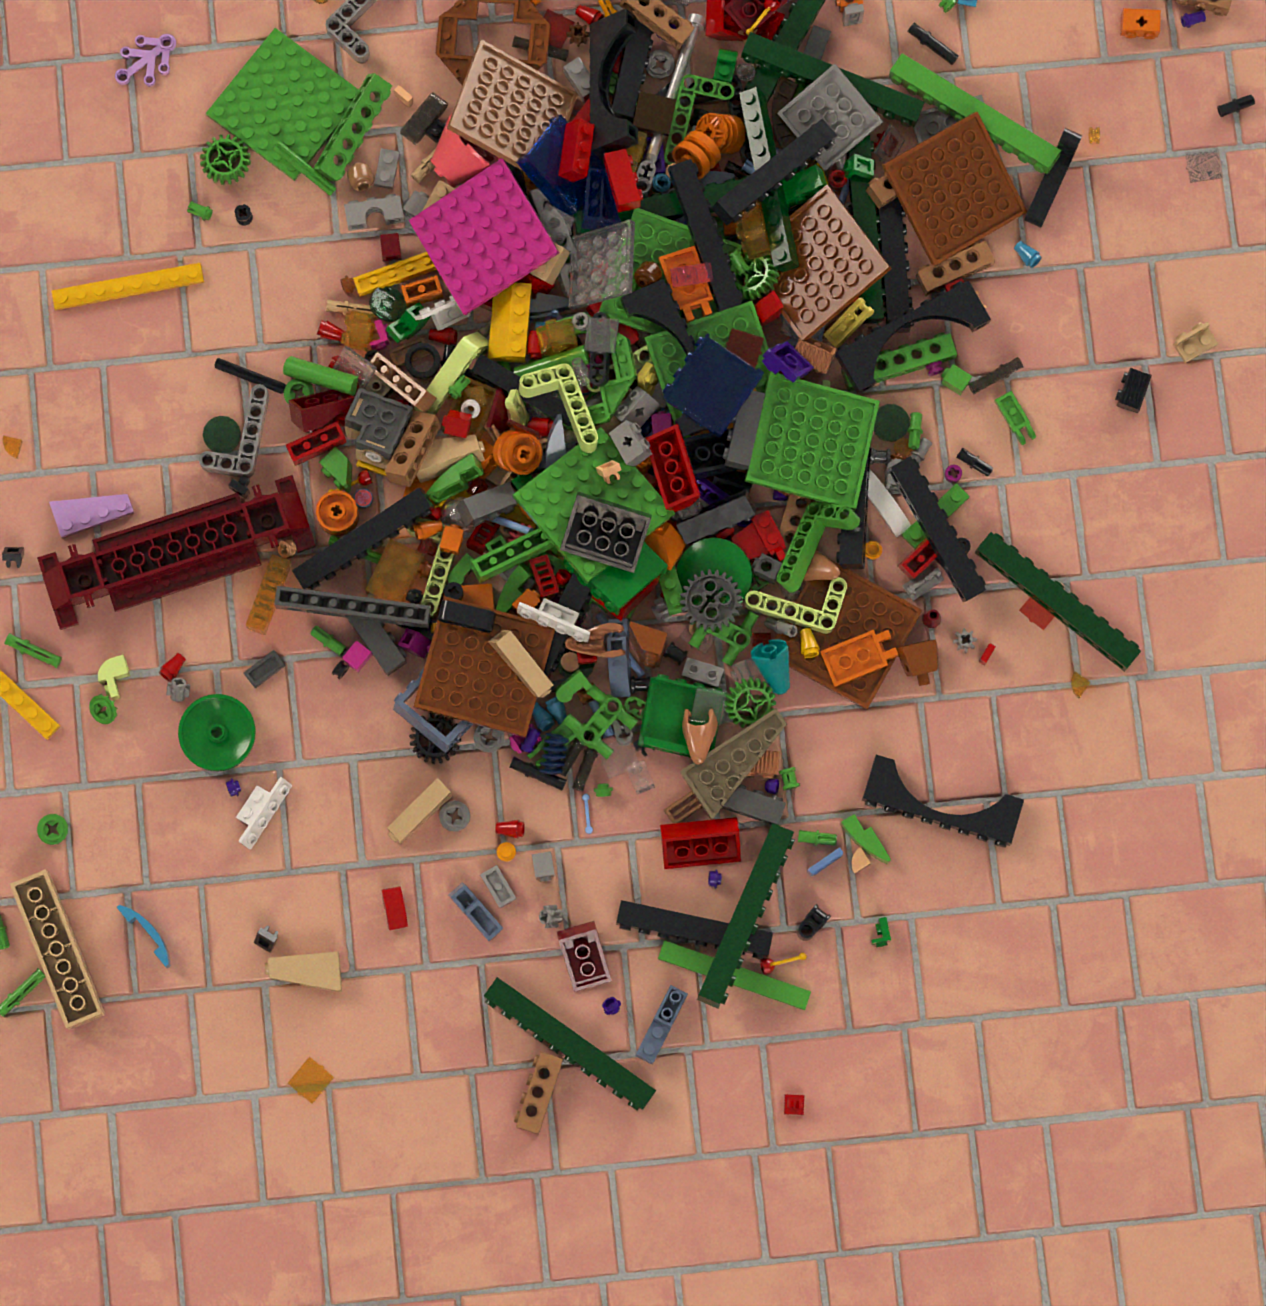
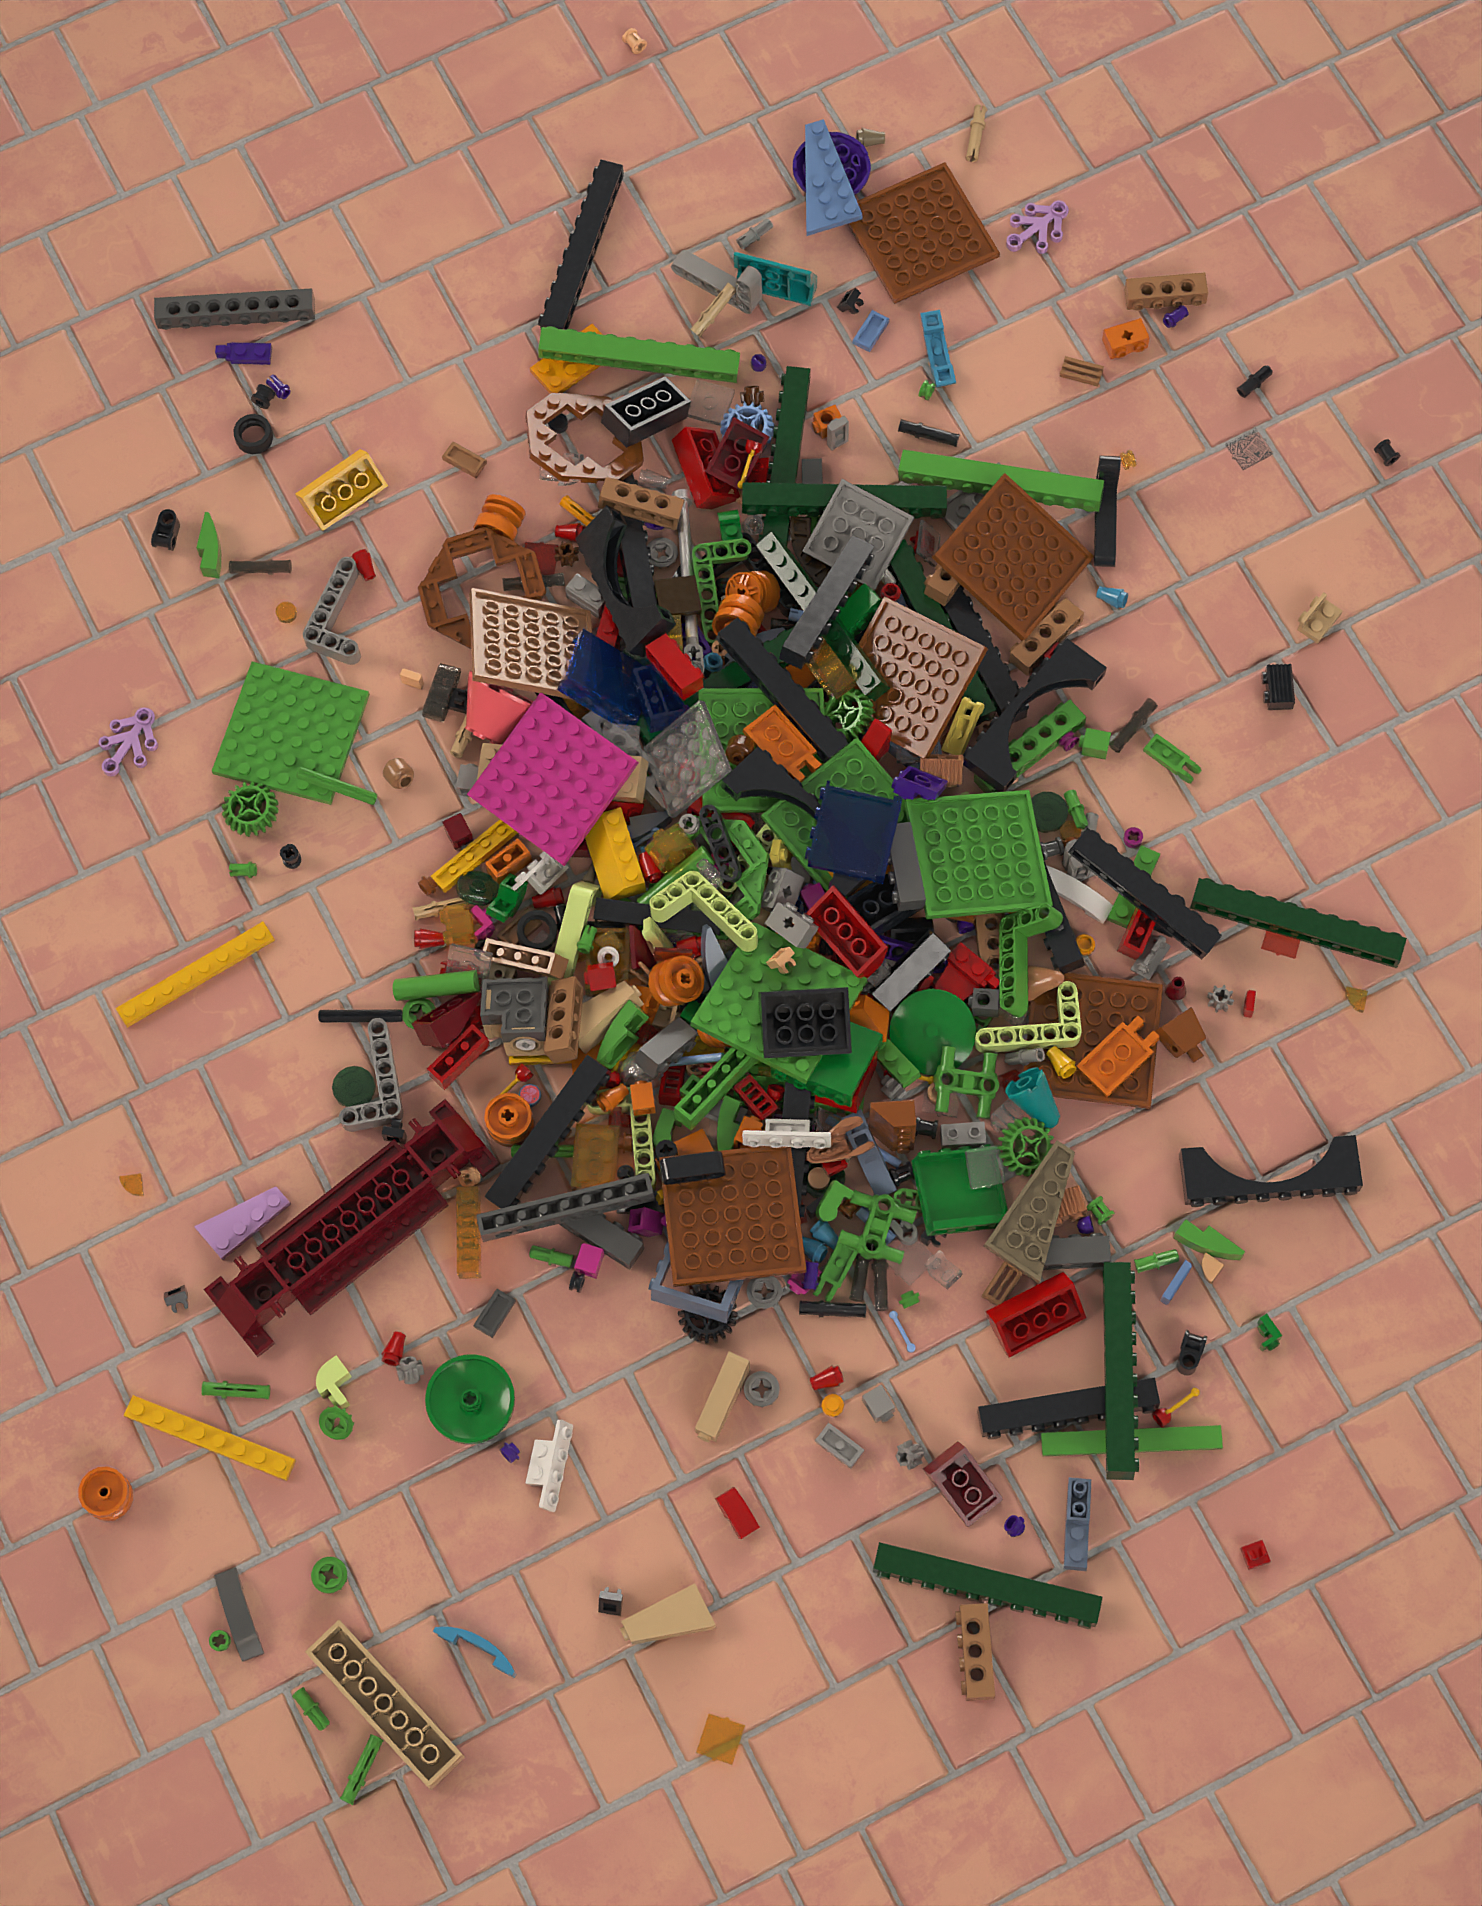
camera: 15 degrees left, 10 degrees down
(325, 163) = (385, 680): bright green brick -> none
(338, 467) = (491, 1073): bright green slope -> none
(358, 211) = (439, 792): light grey arch -> none
(386, 168) = (422, 756): light grey plate -> none
(475, 911) = (826, 1482): sand blue slope -> none
(521, 663) = (770, 1193): tan slope -> none
(554, 754) = (842, 1279): dark blue piece -> none
(576, 150) = (614, 656): red brick -> none
(601, 335) = (716, 827): clear piece -> none
(691, 274) = (785, 732): clear pink slope -> none
(698, 590) = (924, 1049): dark grey gear -> none
(699, 737) = (989, 1201): nougat animal -> none
(714, 878) = (1066, 1346): dark purple plate -> none
(737, 260) = (826, 704): bright green pin -> none
(745, 346) = (868, 782): clear red piece -> none
(859, 166) = (907, 570): green bracket -> none
(974, 462) = (1149, 817): black axle -> none
(1093, 31) = (1082, 368): none -> medium nougat tile

